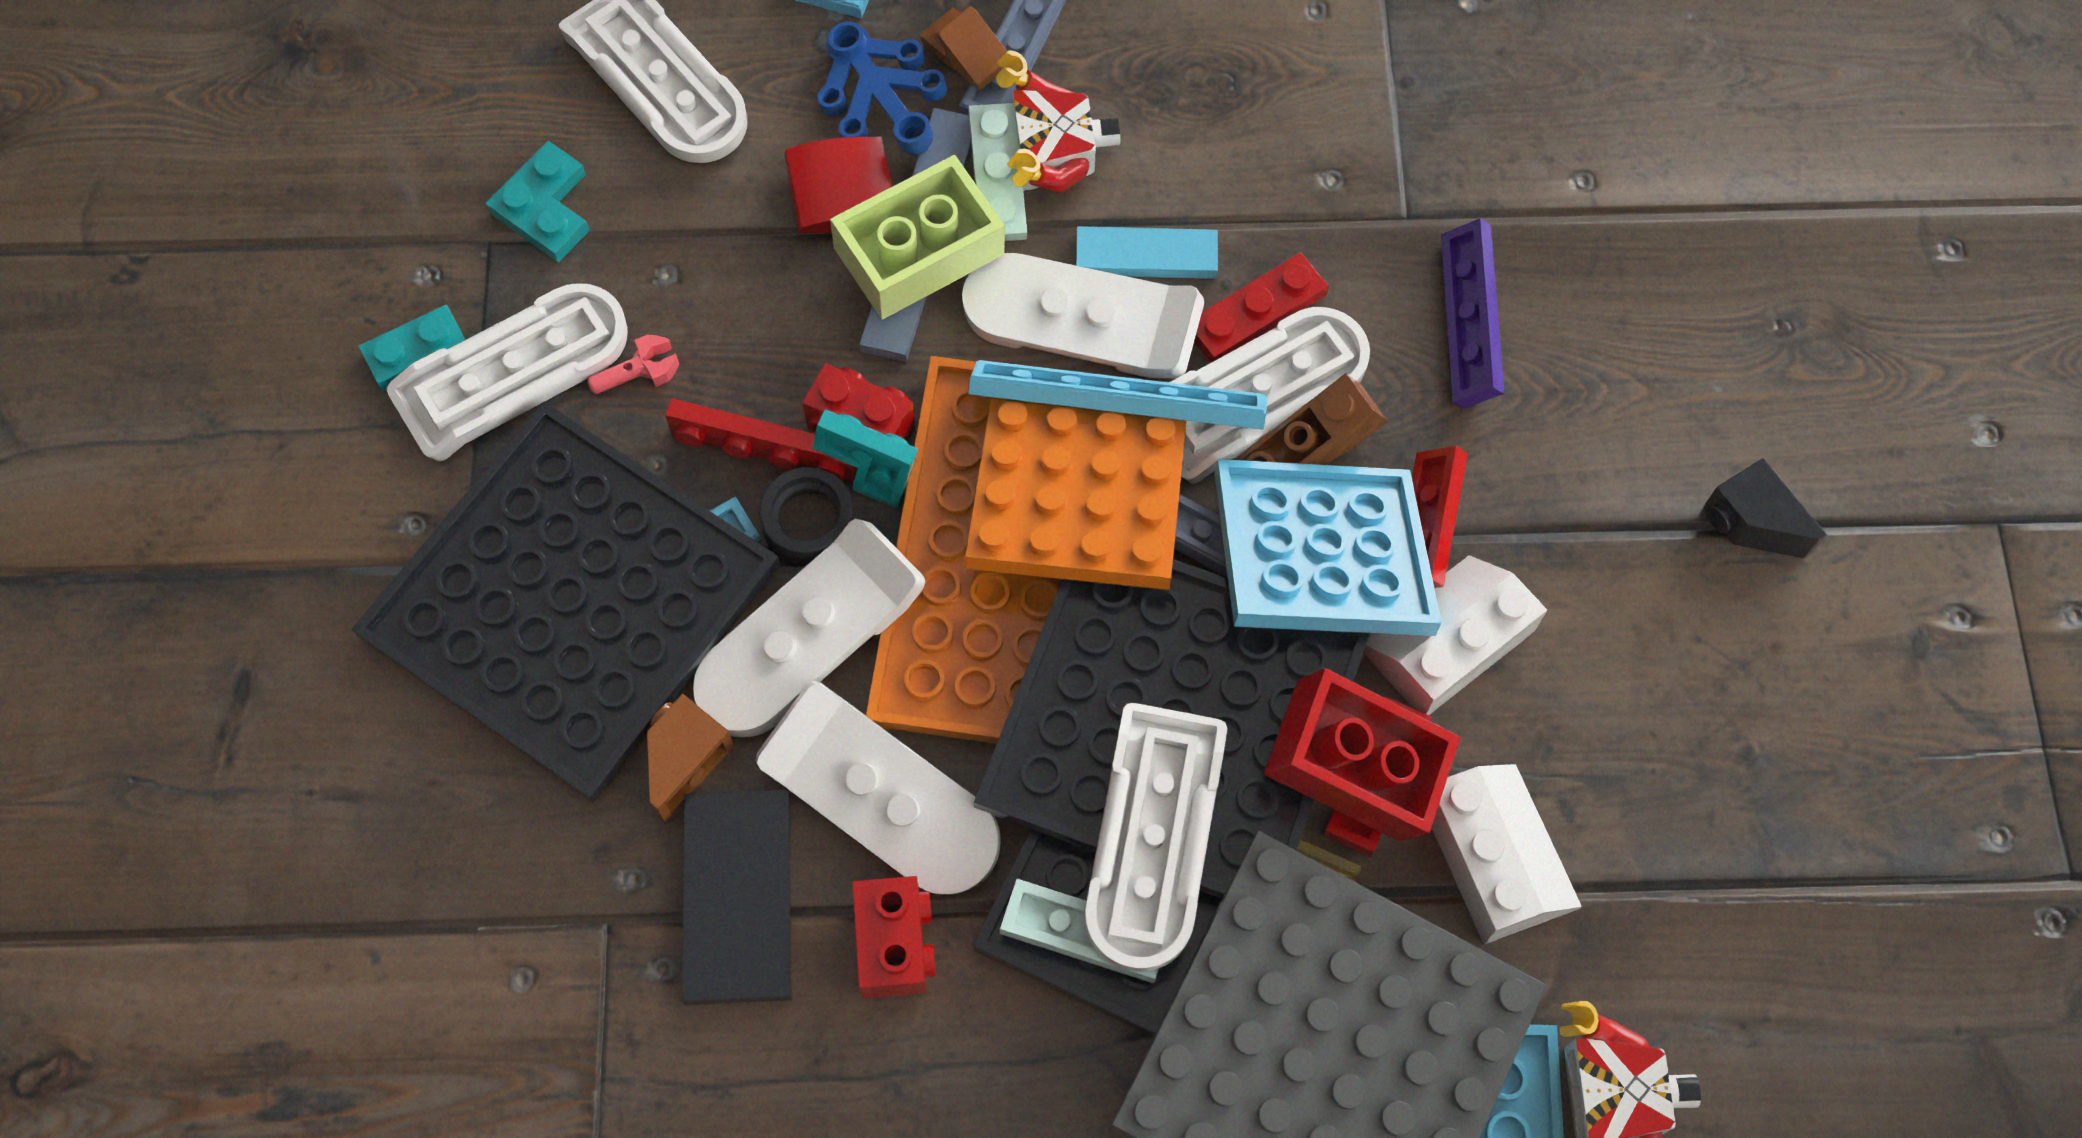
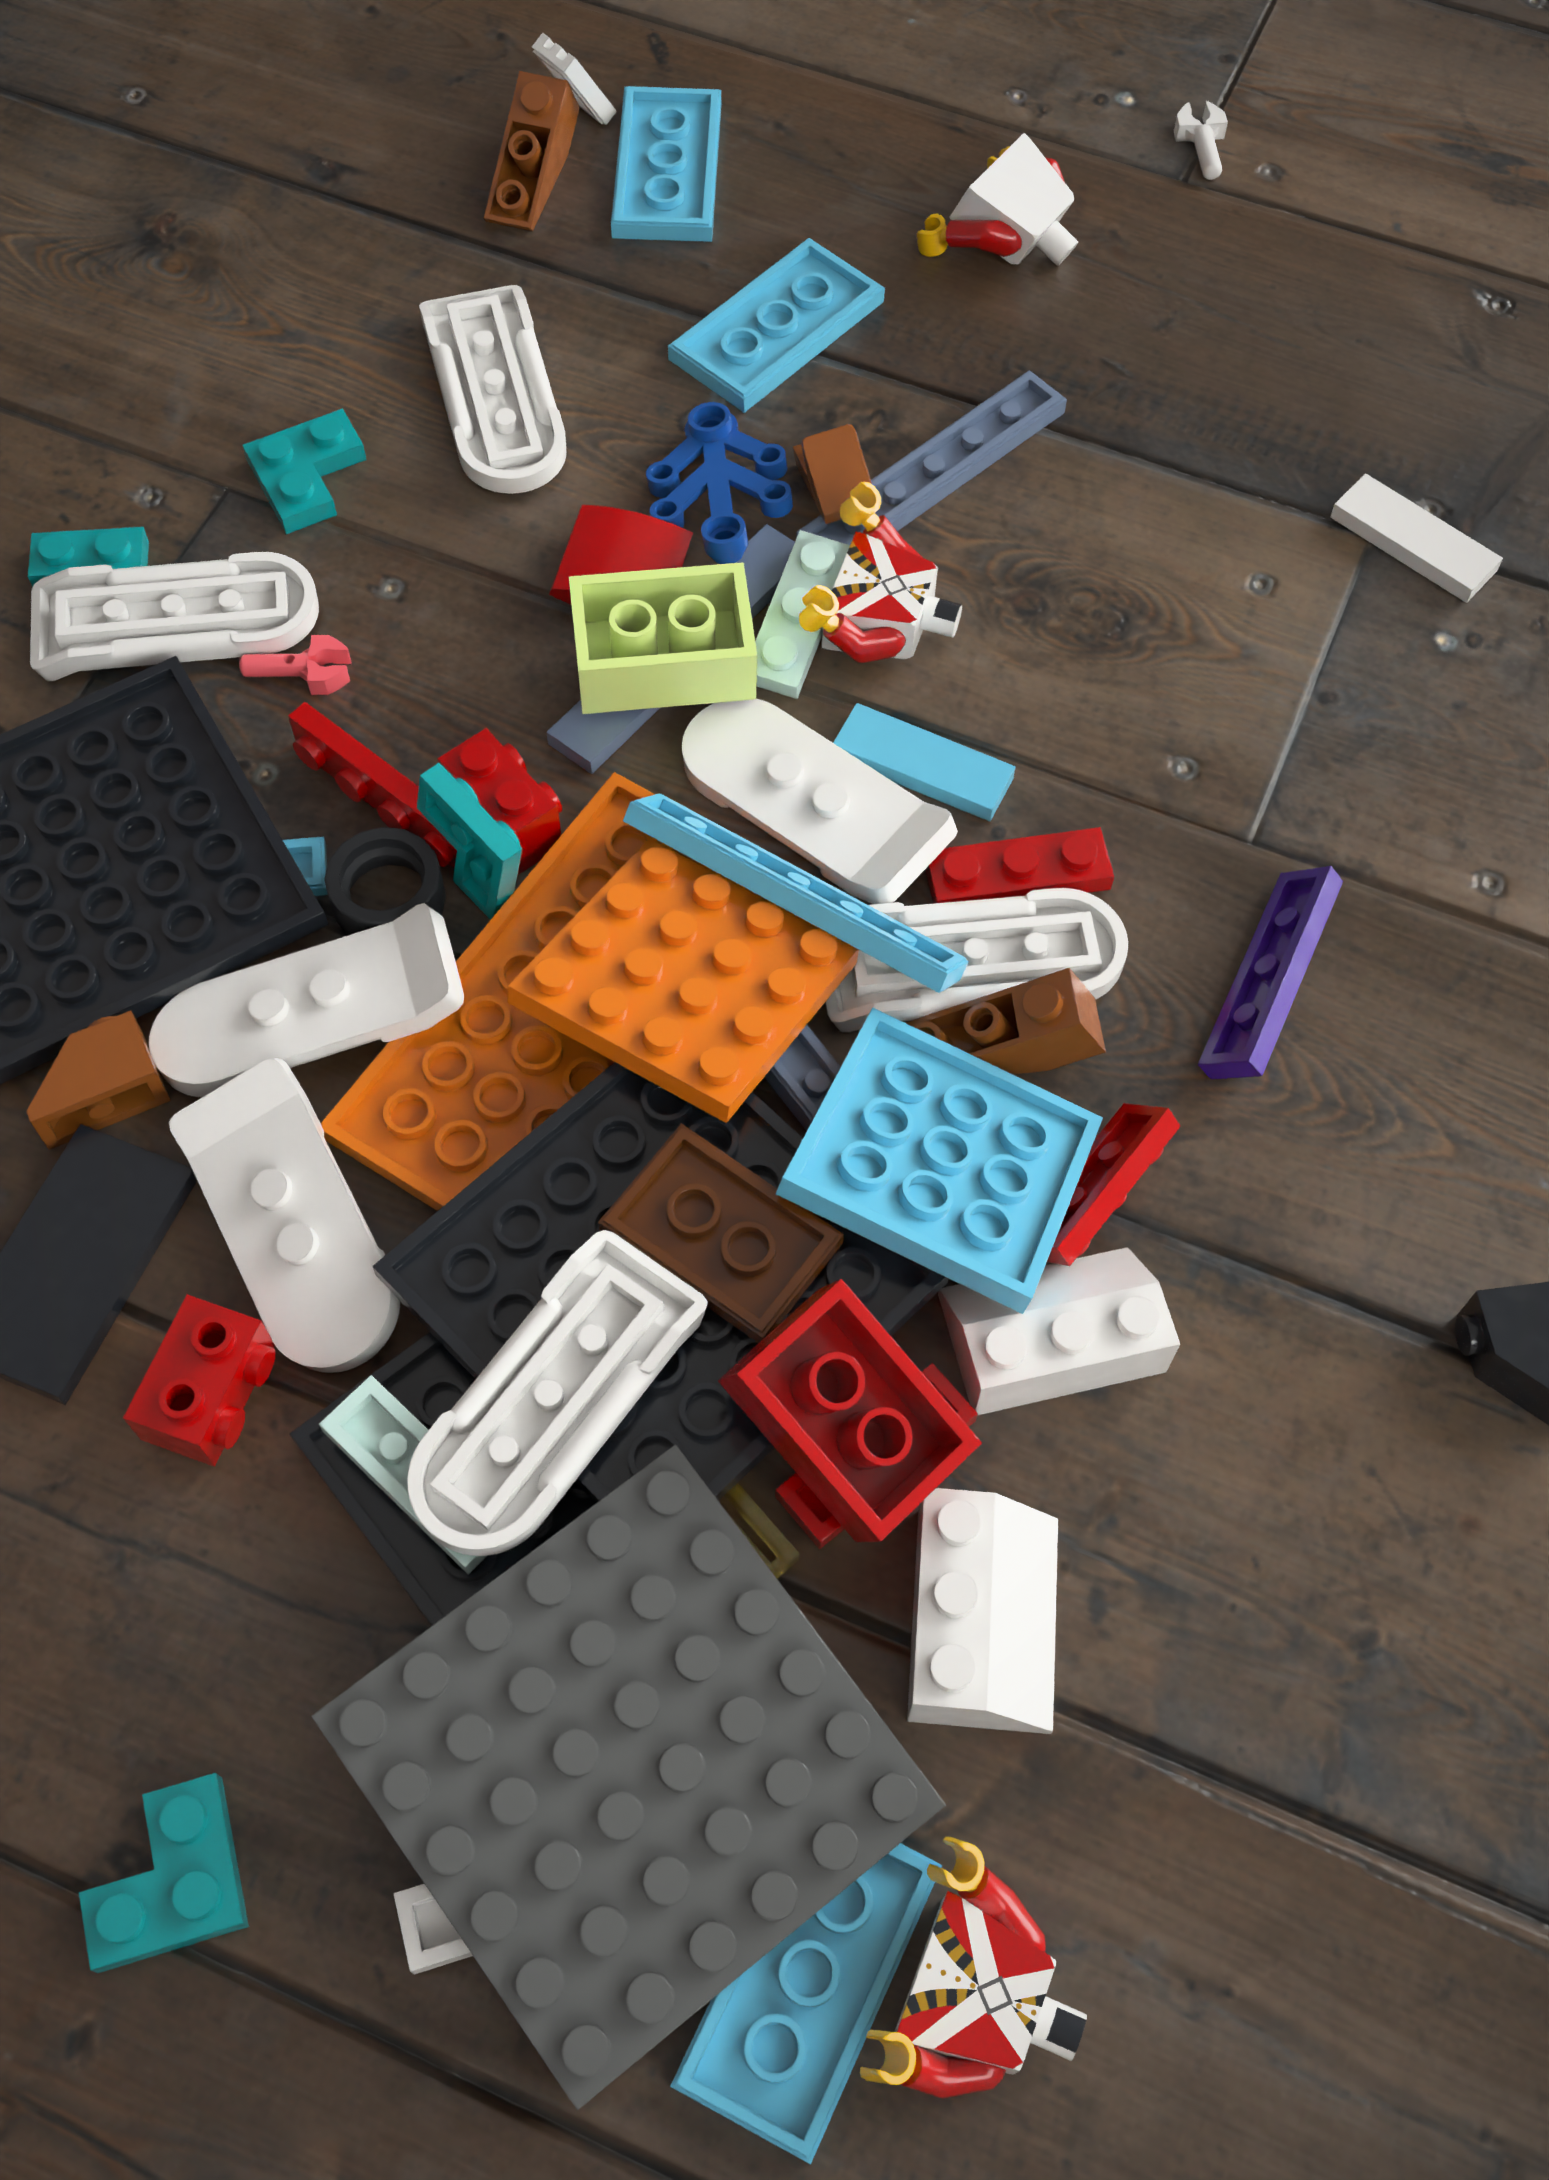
camera: 25 degrees right, 5 degrees down
(1206, 668) = (723, 1232): none -> reddish brown tile

